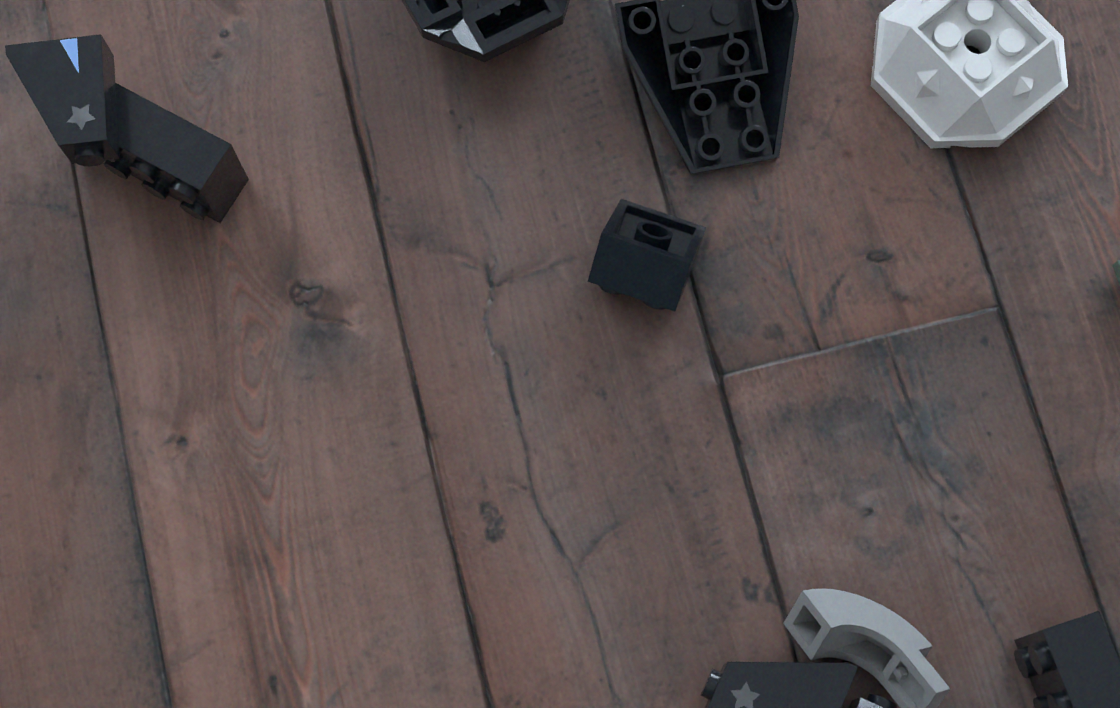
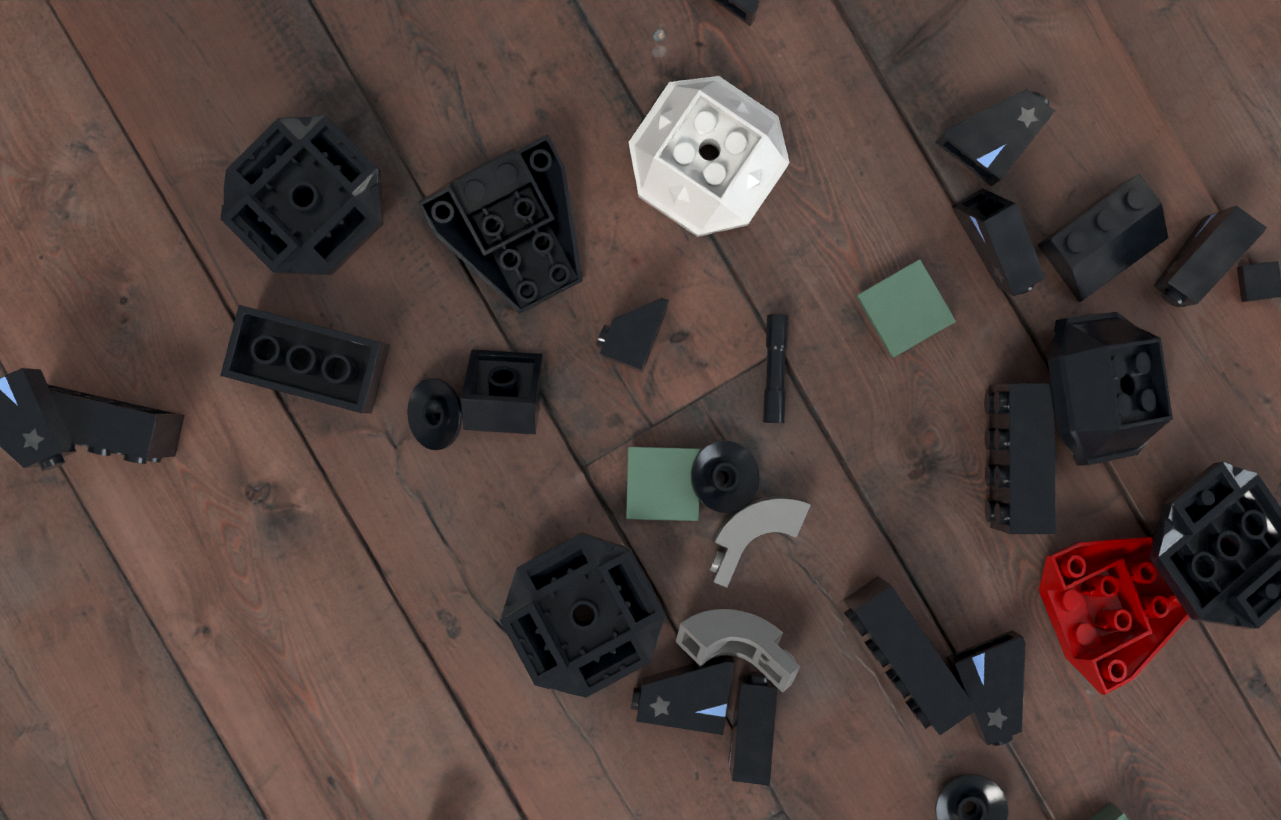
camera: 25 degrees left, 15 degrees up
(422, 146) = (305, 360): none -> black brick
(556, 254) = (434, 414): none -> black dish
(708, 503) = (574, 653): none -> black piece
(818, 419) = (661, 484): none -> sand green tile
(829, 224) = (633, 335): none -> black slope
(915, 427) = (739, 472): none -> black dish
(935, 495) = (757, 518): none -> light grey arch
(986, 350) = (776, 346): none -> black piece

